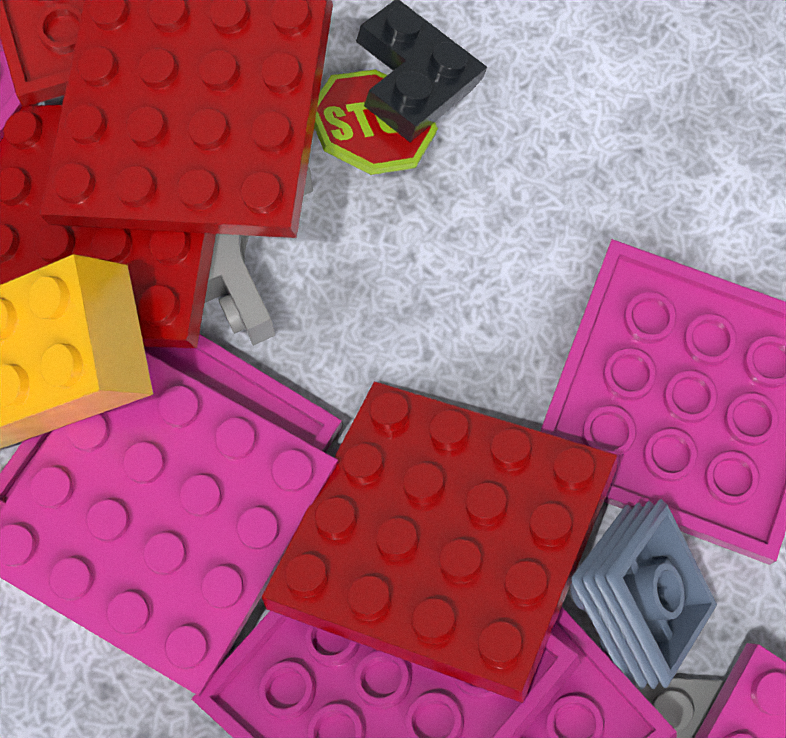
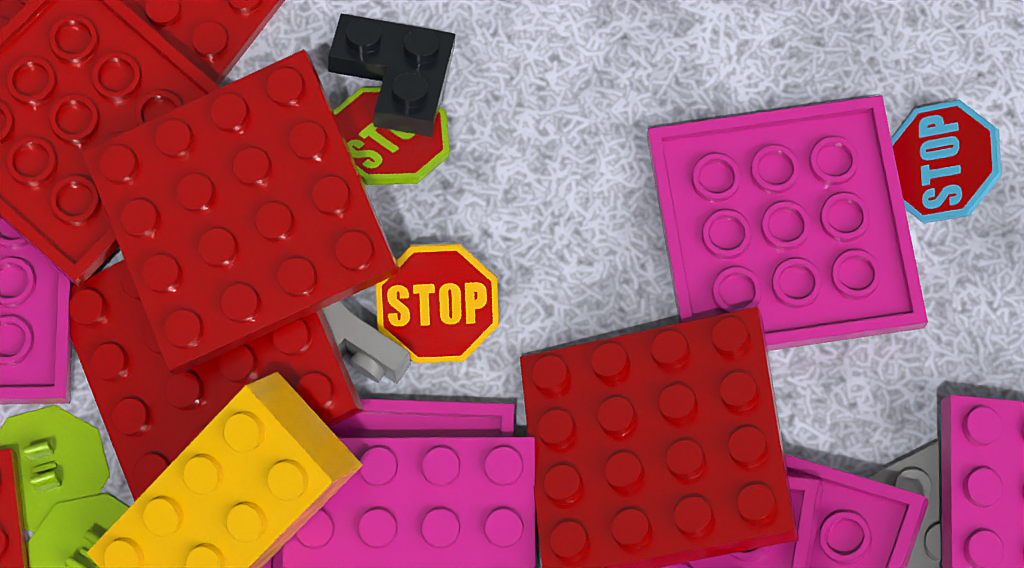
camera: 30 degrees left, 0 degrees up
(327, 291) = (438, 303): none -> piece
(644, 594) = (840, 405): sand blue brick -> none

